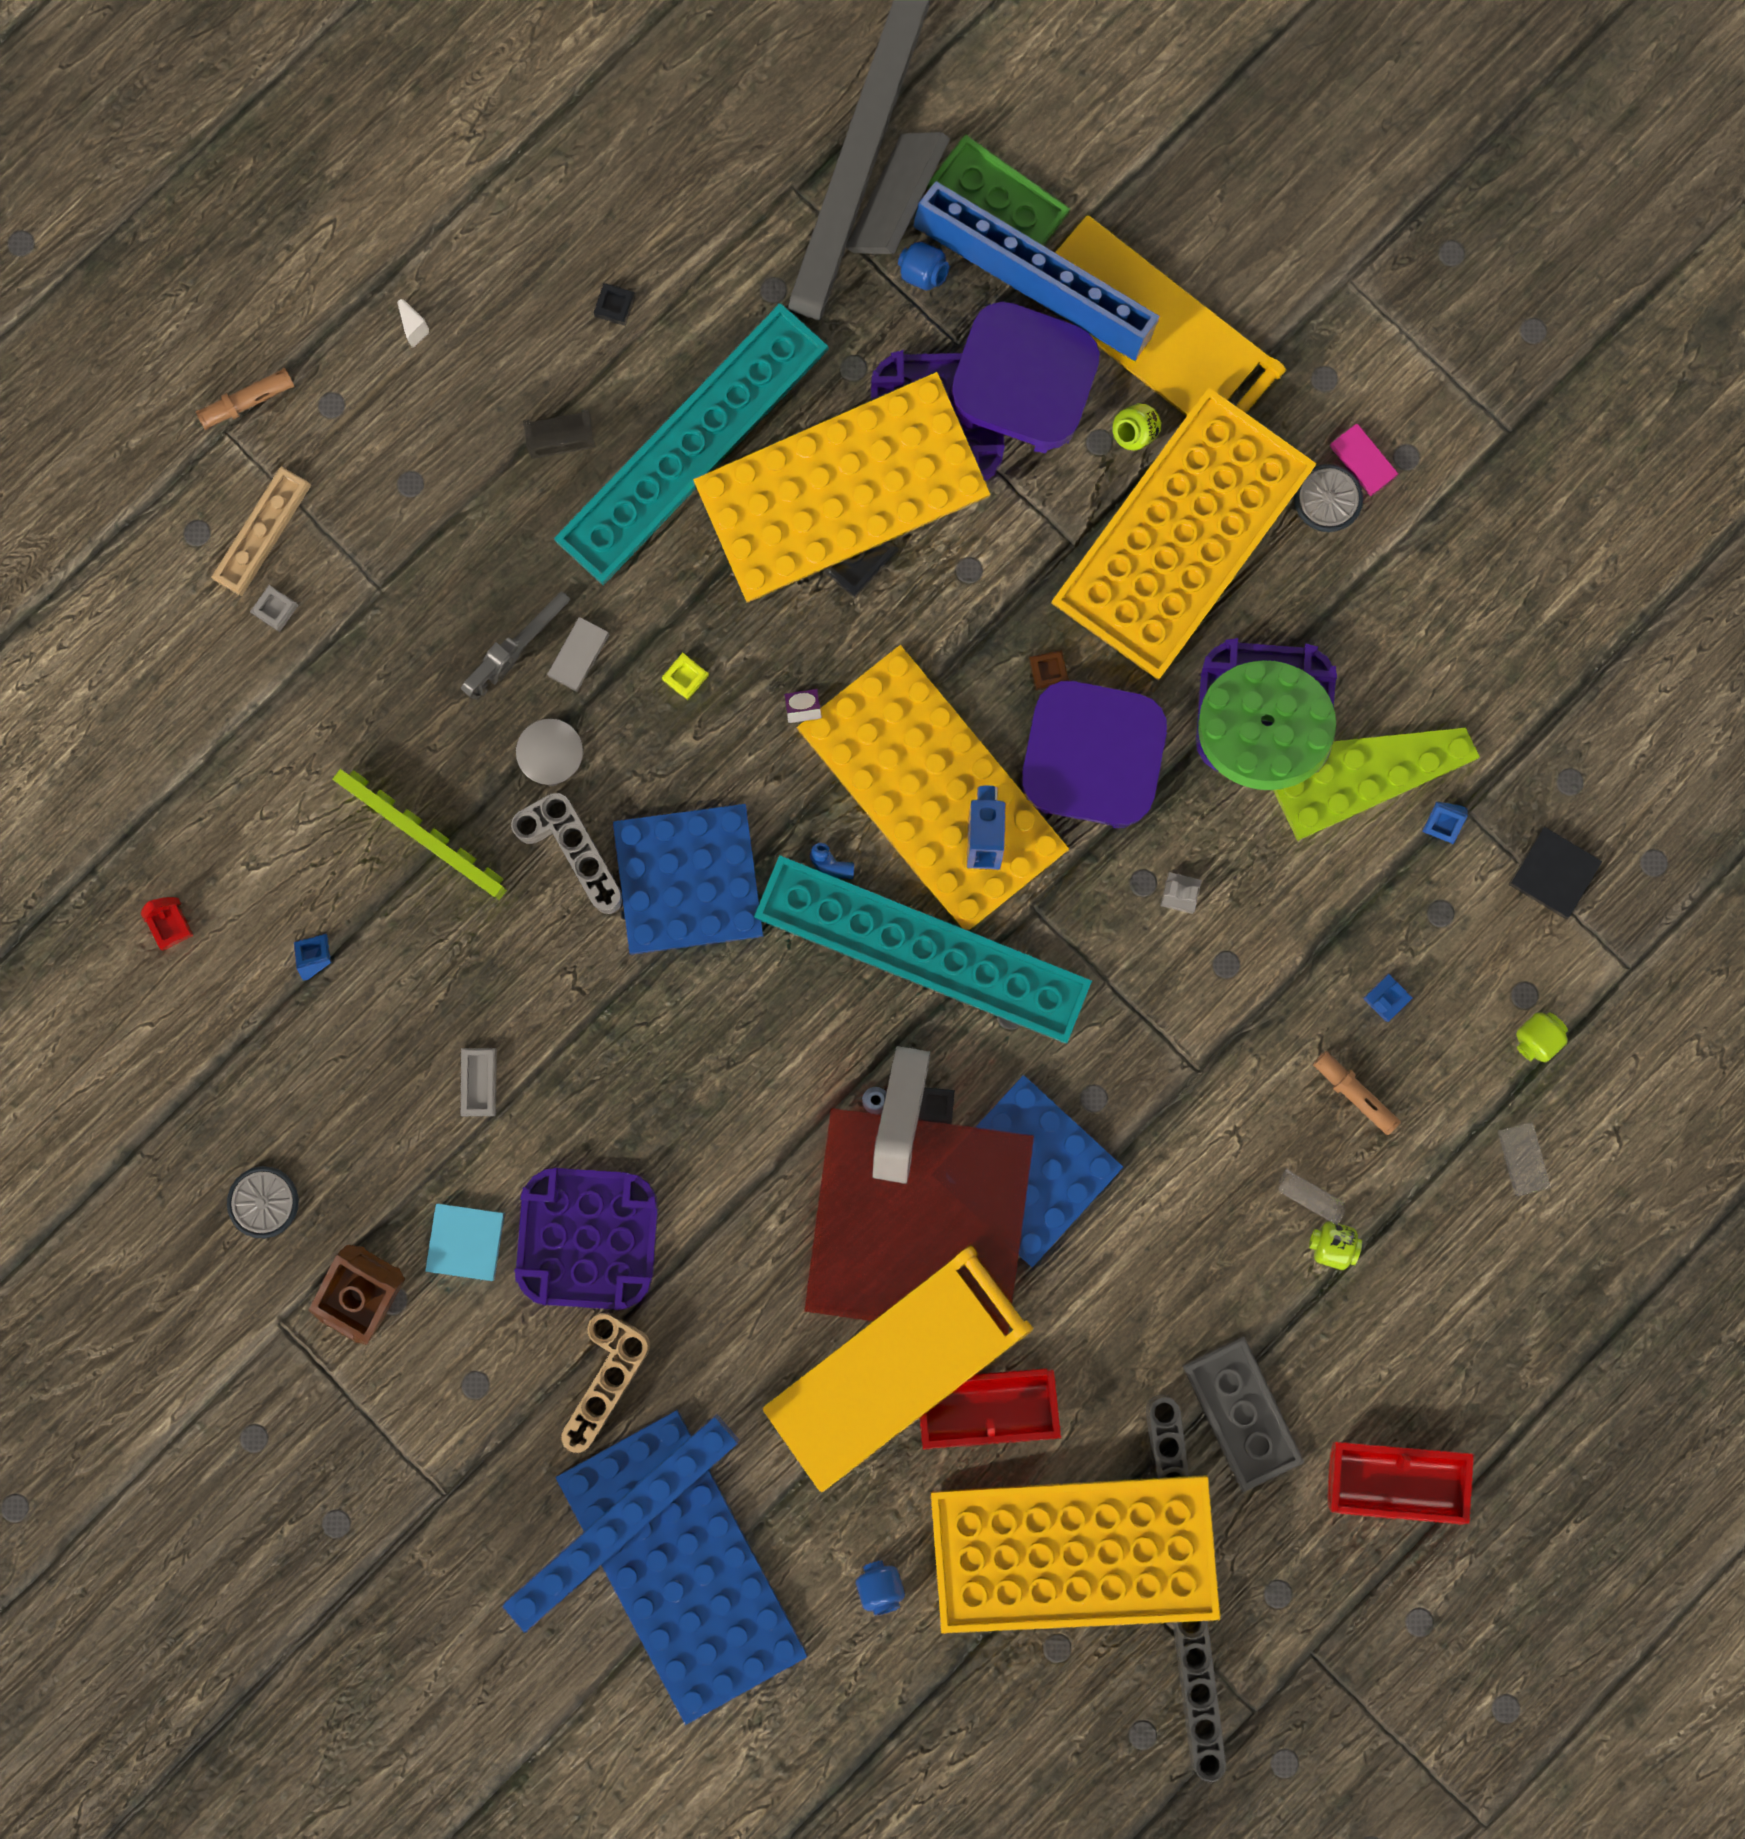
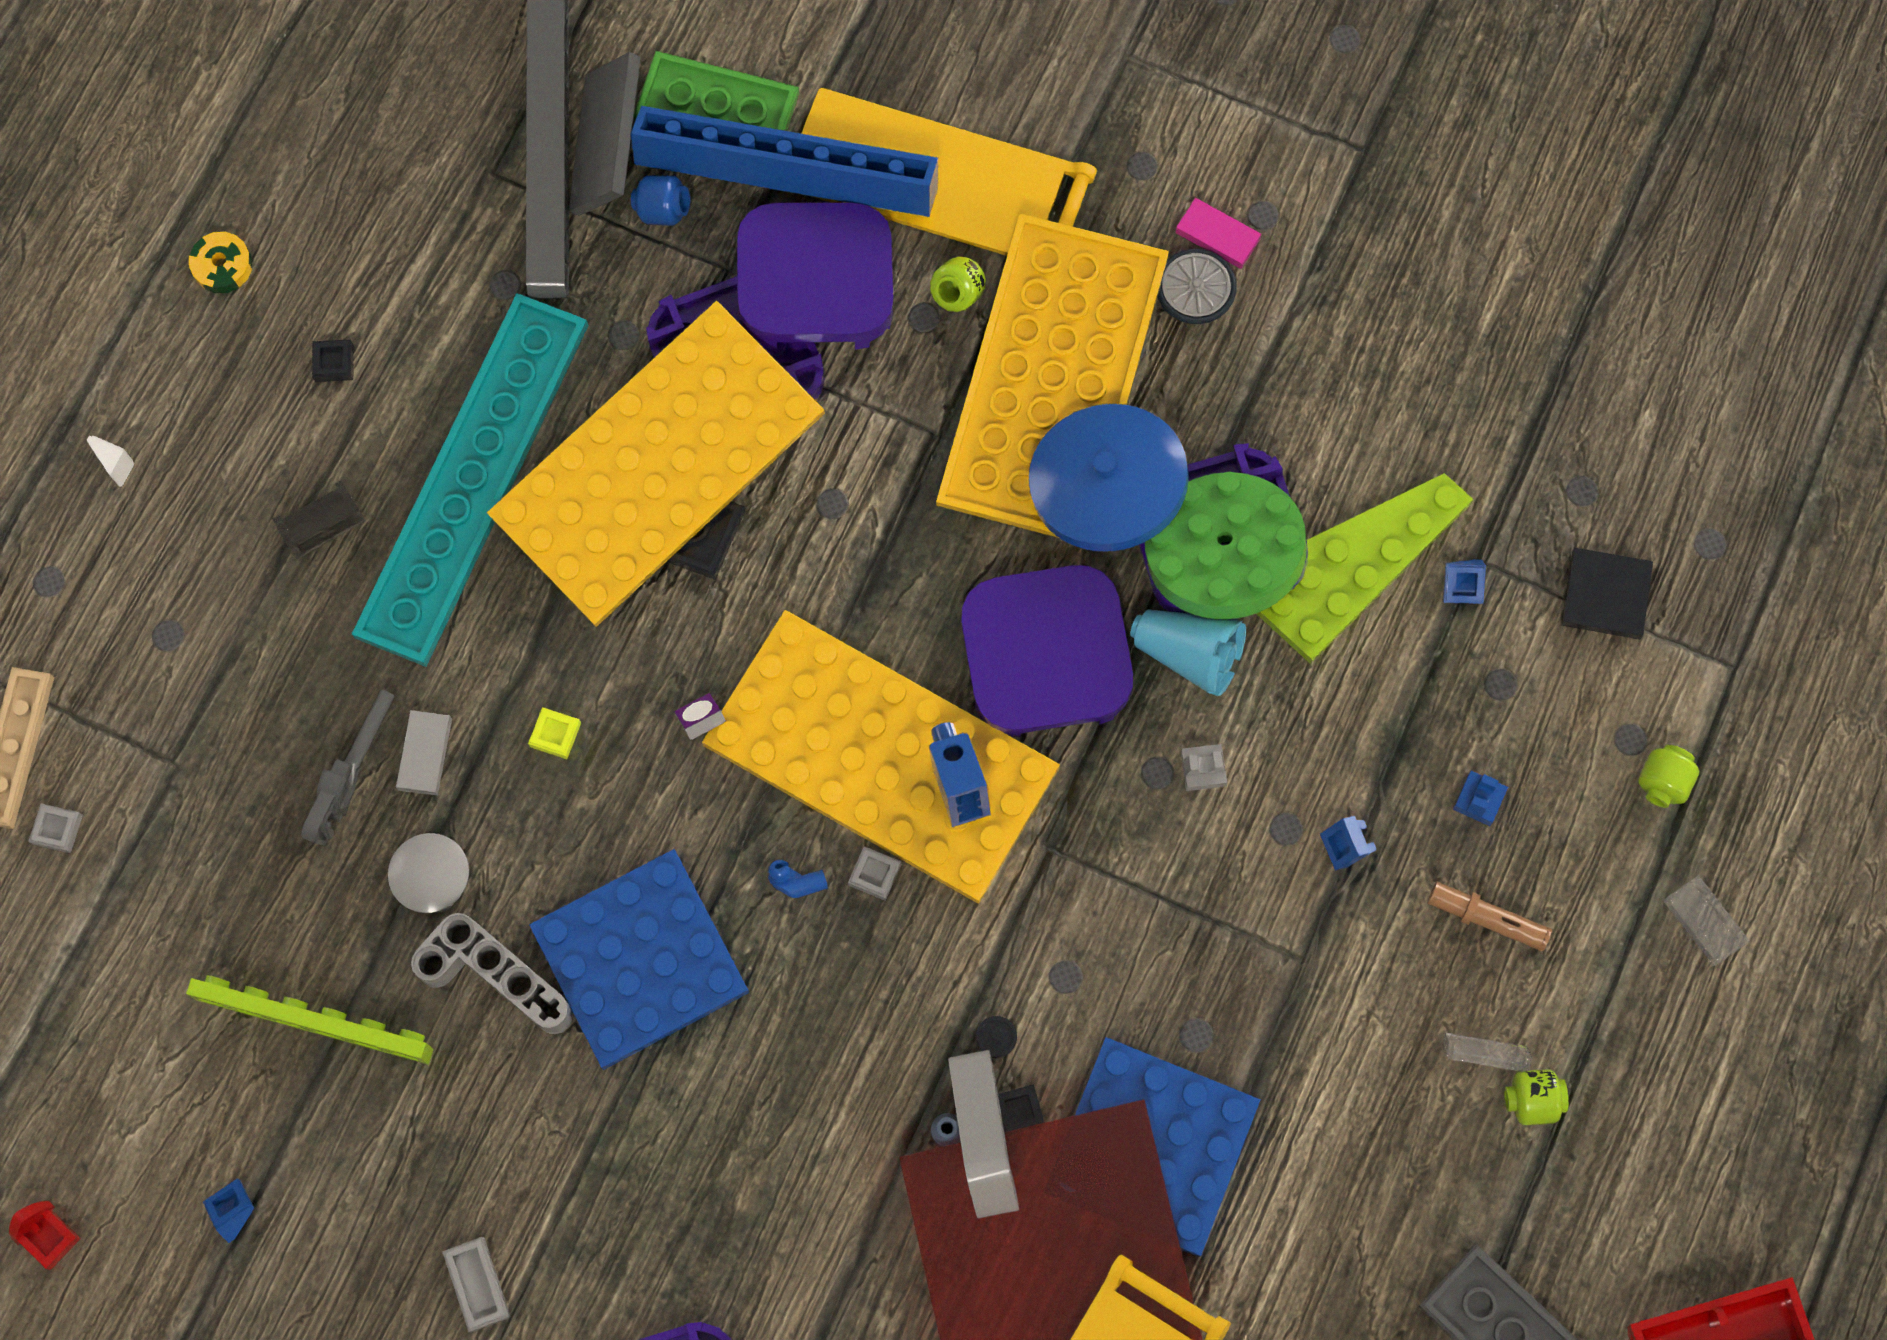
camera: 15 degrees left, 10 degrees down
(552, 173) = (216, 247): none -> yellow piece
(893, 880) = (874, 873): none -> light grey tile
(923, 949) = (937, 937): teal plate -> none
(940, 1042) = (997, 1036): none -> black piece
(1048, 669) = (960, 577): reddish brown tile -> none
(1195, 634) = (1108, 477): none -> blue dish
(1208, 794) = (1192, 645): none -> medium azure cone
(1268, 994) = (1346, 842): none -> blue tile

